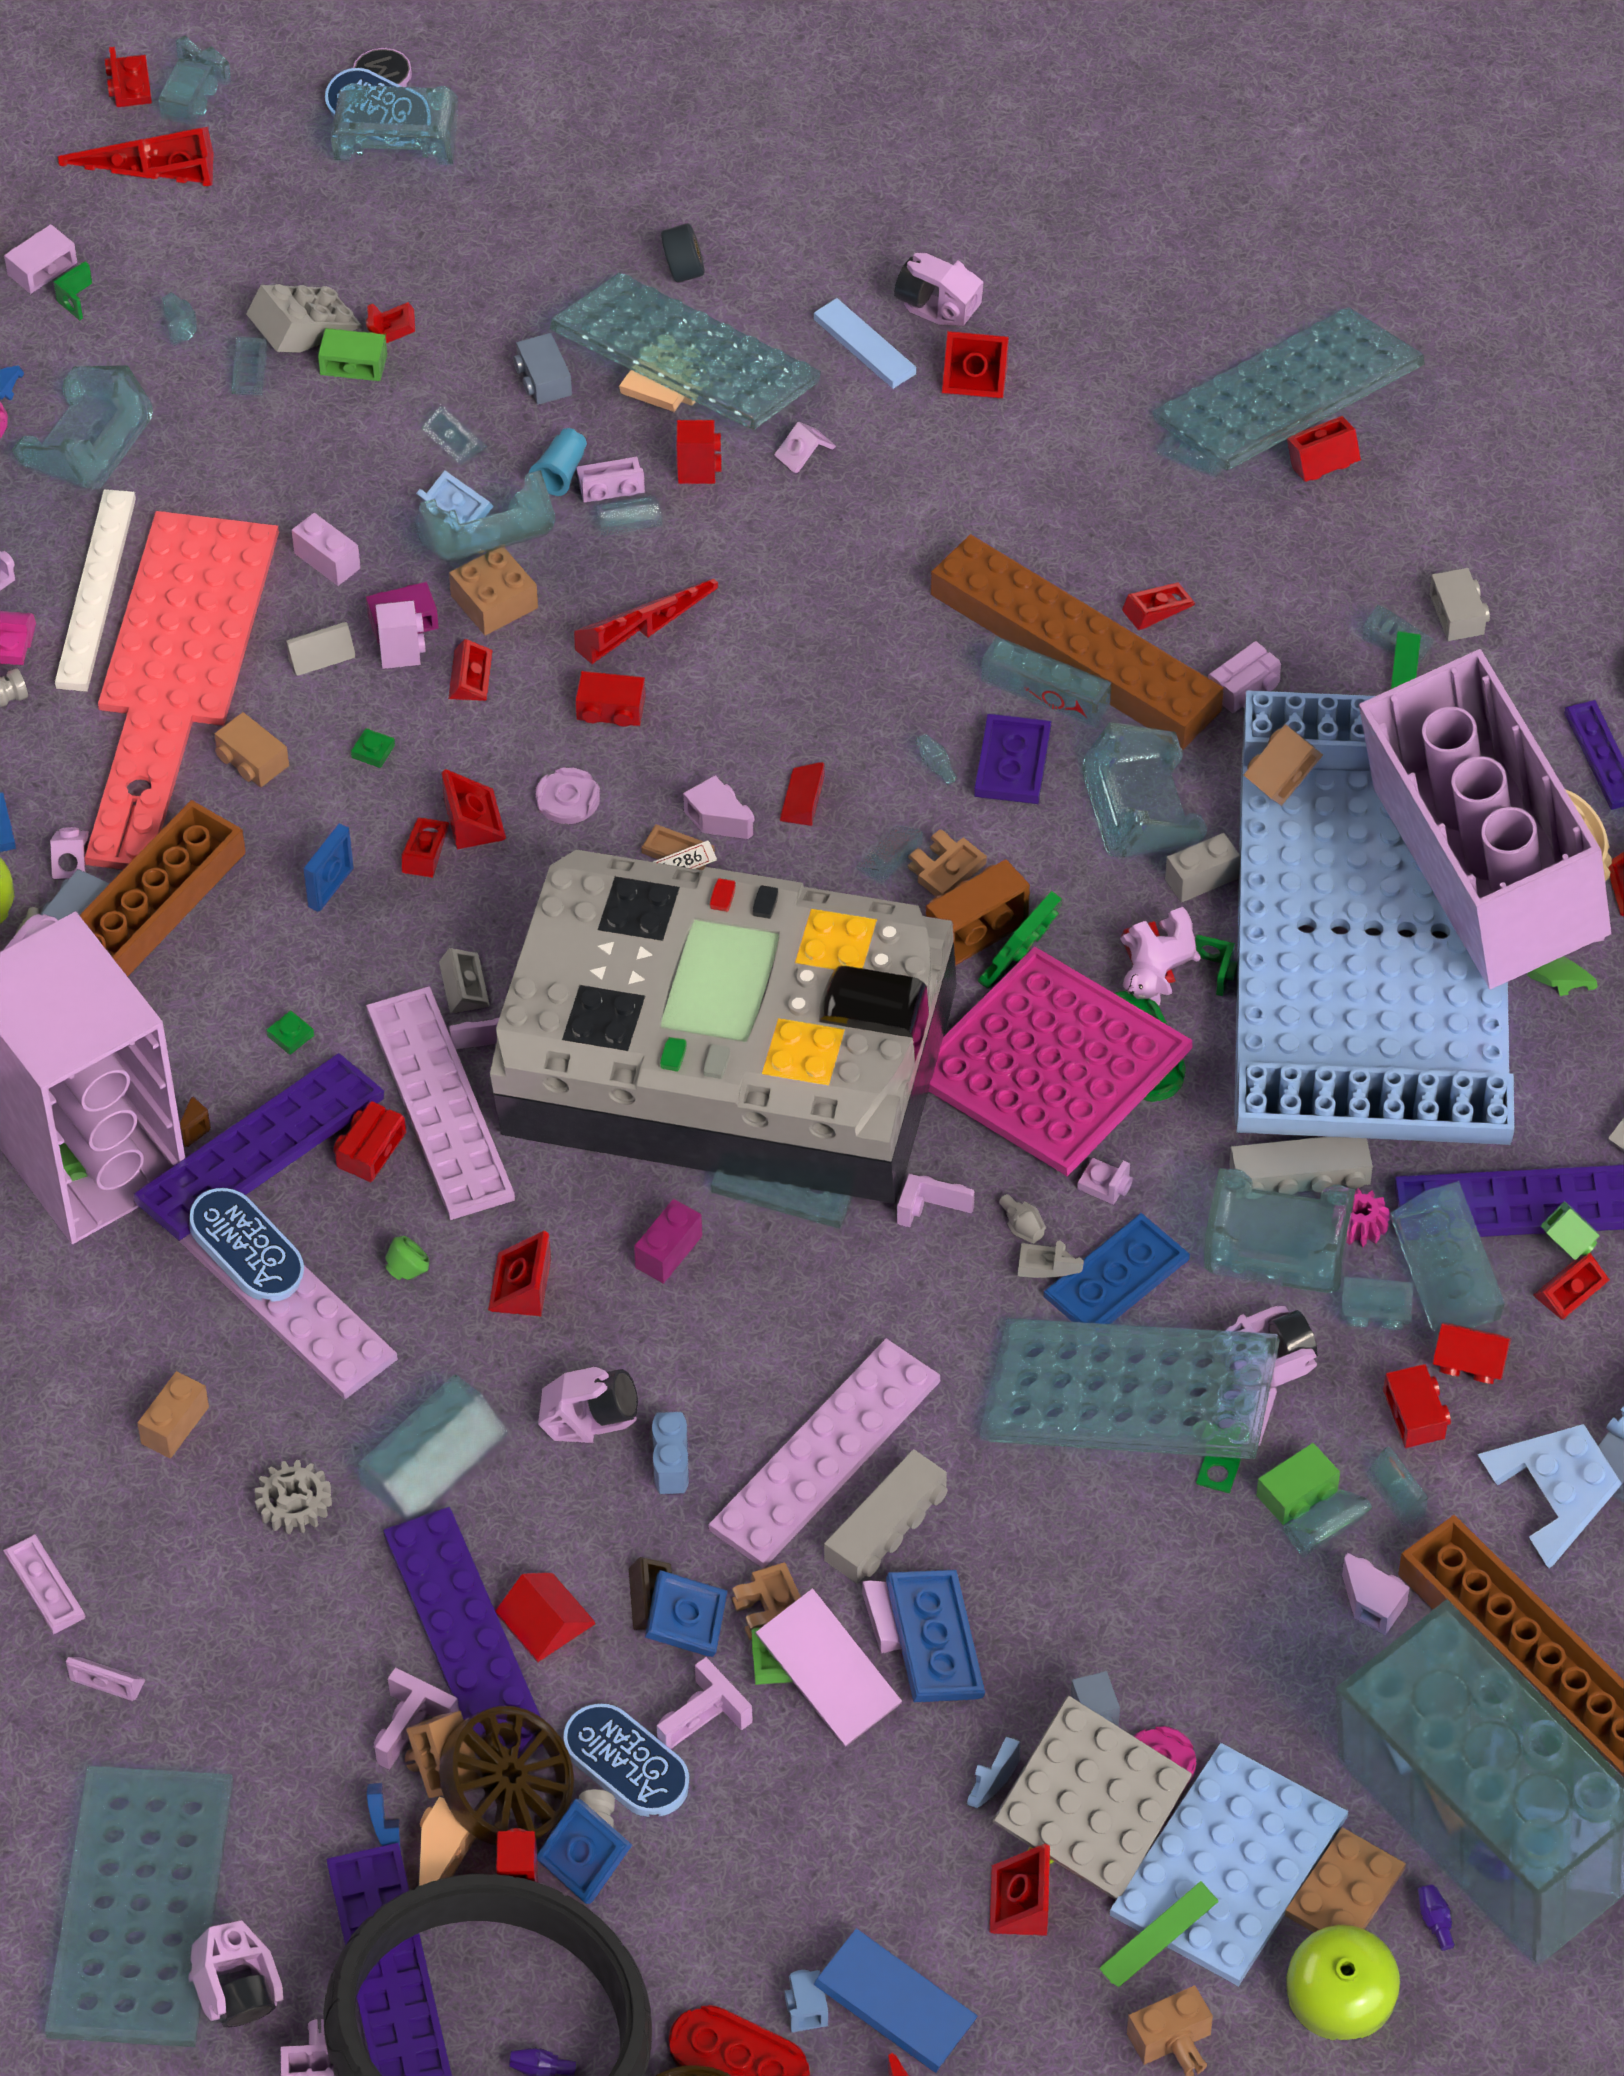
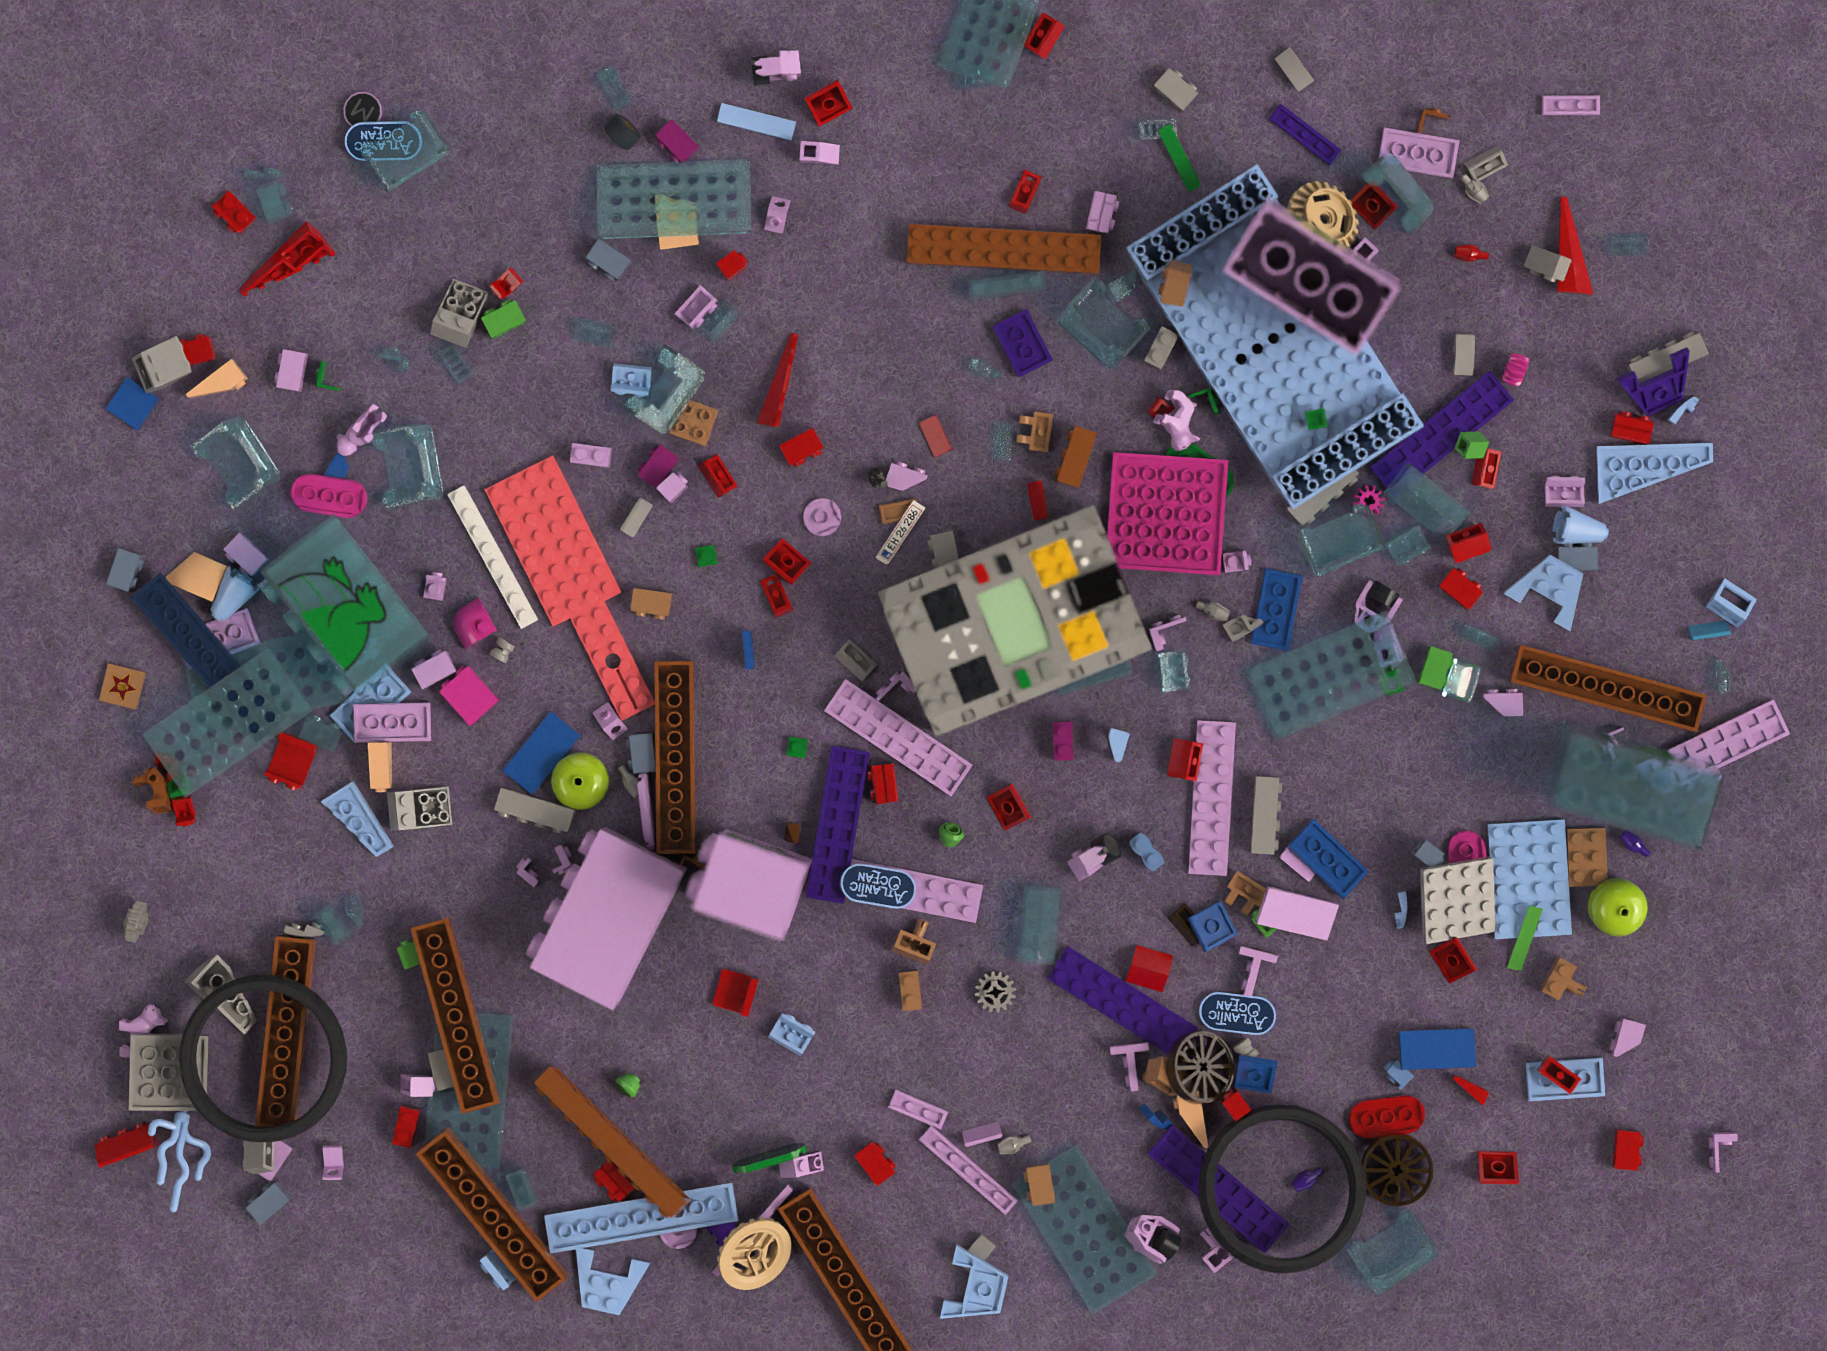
camera: 35 degrees left, 35 degrees up
(42, 1713) = (968, 1170): none -> lavender tile
(60, 353) = (359, 431): none -> lavender animal
(128, 1783) = (1040, 1184): none -> medium nougat brick
(137, 1717) = (1012, 1144): none -> light grey piece
(229, 1360) = (914, 945): none -> medium nougat brick
(560, 461) = (663, 315): dark azure plant -> none
(678, 784) = (877, 478): none -> pearl dark grey piece
(714, 214) = (614, 88): none -> clear light blue slope
(743, 301) = (677, 142): none -> magenta brick
(751, 1278) = (1118, 742): none -> light blue tile
(826, 1368) = (1185, 759): none -> red brick
(899, 1253) = (1173, 671): none -> clear light blue bracket
(915, 407) = (819, 153): none -> lavender slope
(1023, 938) = (1107, 448): green wing -> none
(1206, 774) = (1122, 286): none -> clear light blue slope
(1359, 1040) = (1316, 419): none -> green plate

